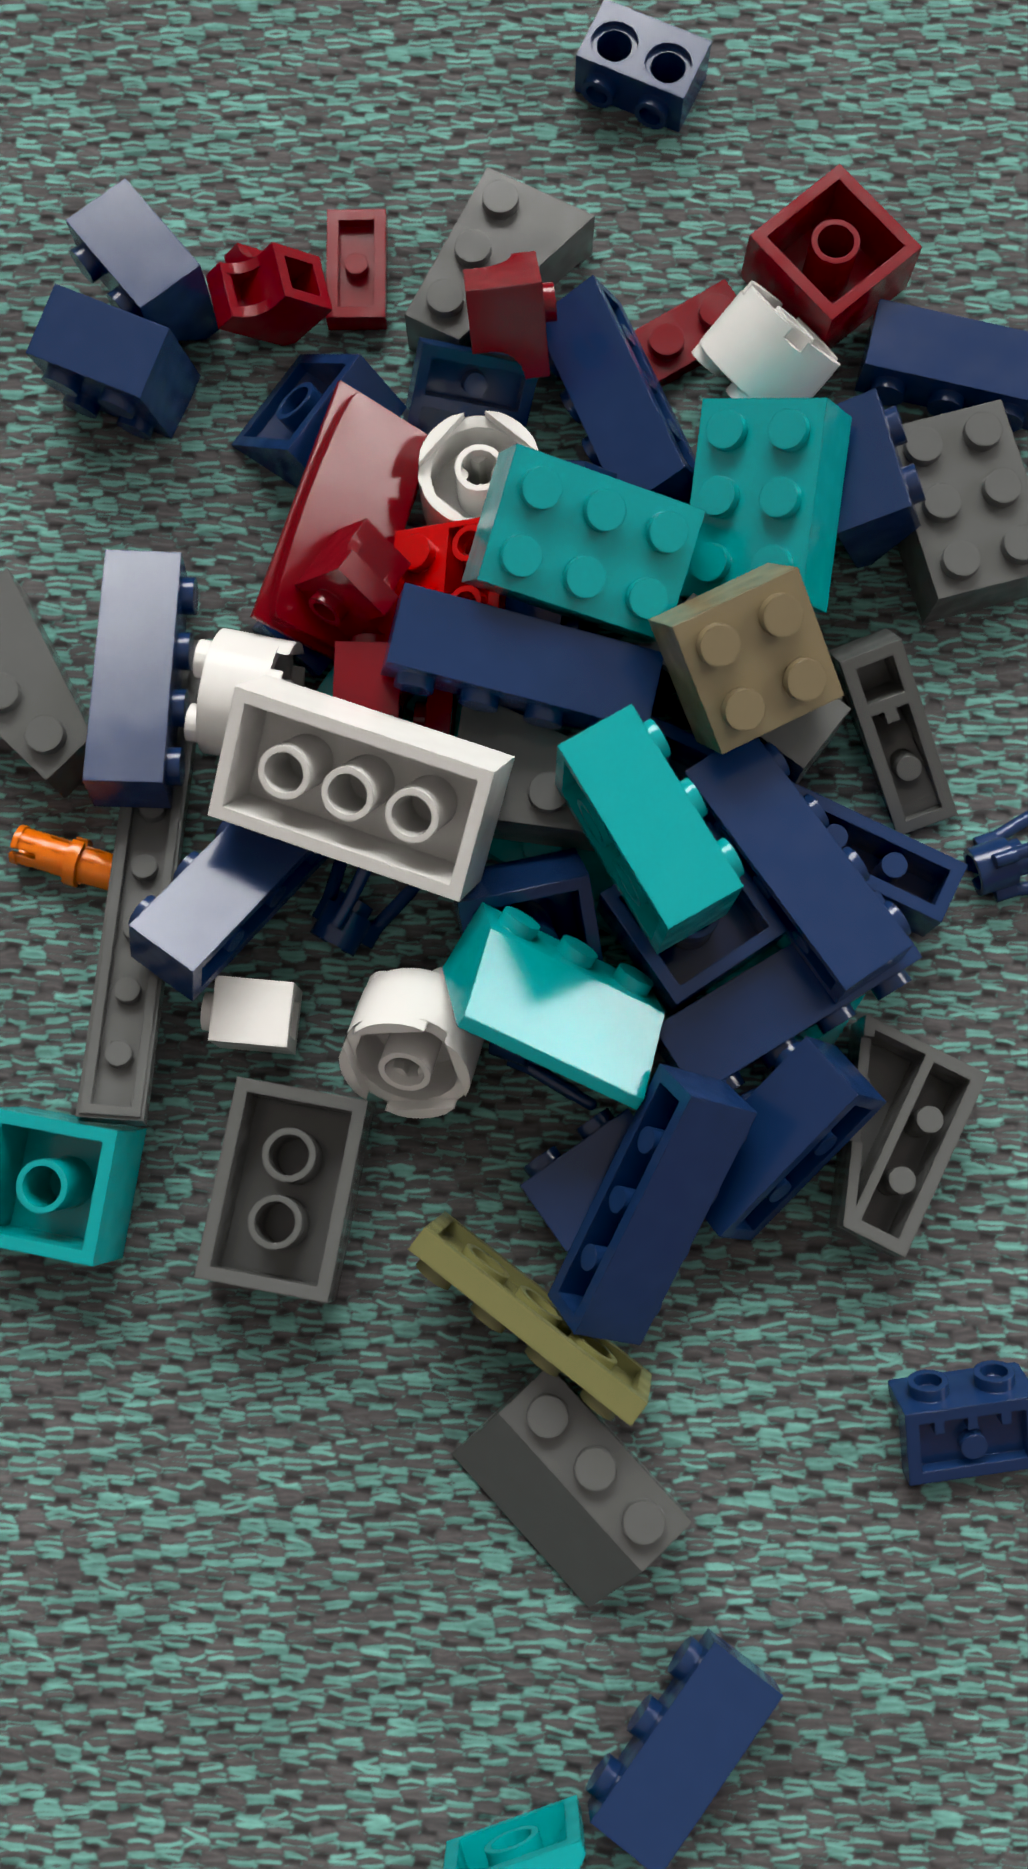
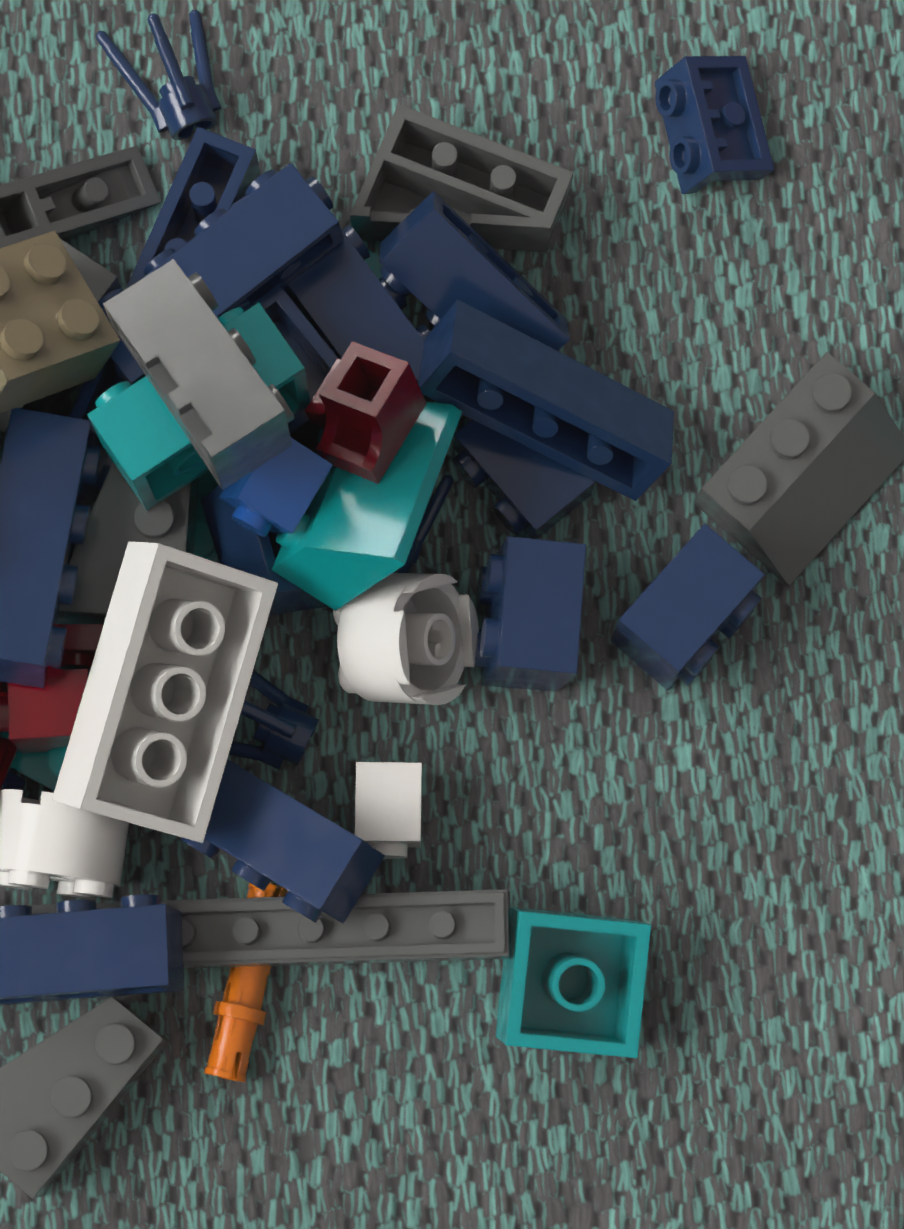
camera: 100 degrees left, 0 degrees up
(285, 1190) = (559, 754): dark grey brick -> none
(419, 1340) = (685, 607): none -> dark blue brick
(427, 1171) = (531, 614): none -> dark blue brick
(512, 1300) = (647, 527): olive plate -> none
(563, 904) = (277, 491): none -> blue brick
(632, 1003) = (365, 411): none -> dark red brick
(659, 811) = (201, 372): none -> wedge

